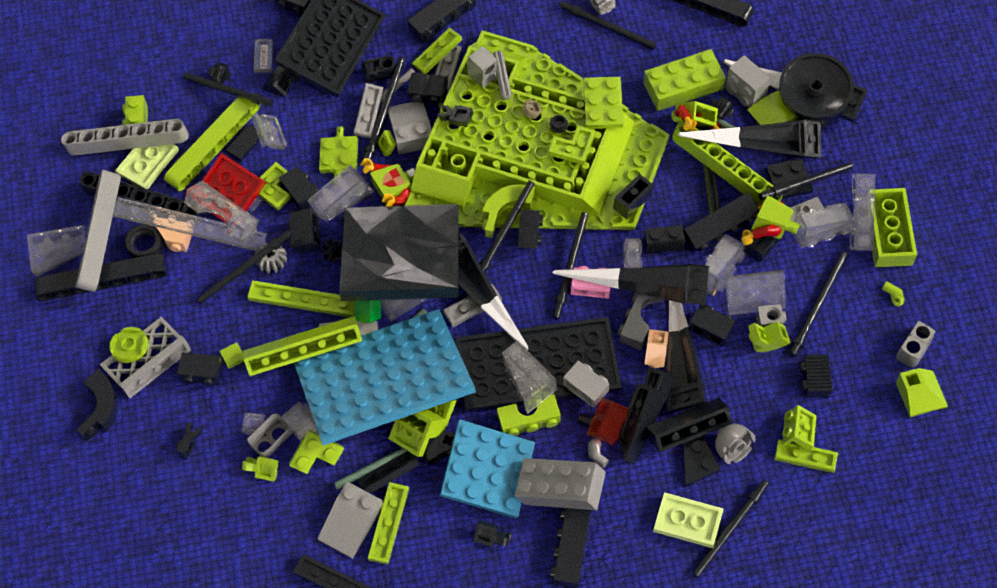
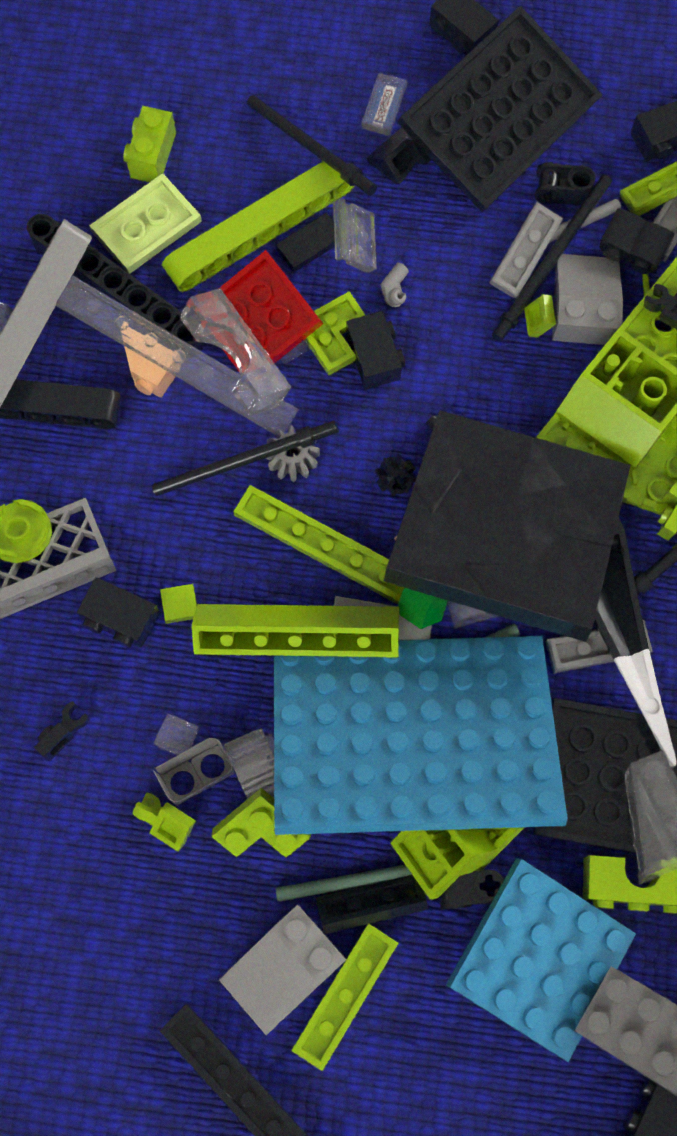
camera: 15 degrees right, 10 degrees up
(125, 137) = (122, 173): light grey beam -> none
(139, 231) = (92, 340): black tyre -> none
(220, 72) = (306, 111): black gear -> none
(298, 151) = (391, 285): none -> light grey arm
(305, 231) = (361, 426): black brick -> none
(338, 153) = (455, 311): lime plate -> none
(340, 193) = (438, 381): clear wedge -> none
(390, 181) = (526, 386): torso -> none
(488, 534) = (511, 1079): black plate -> none

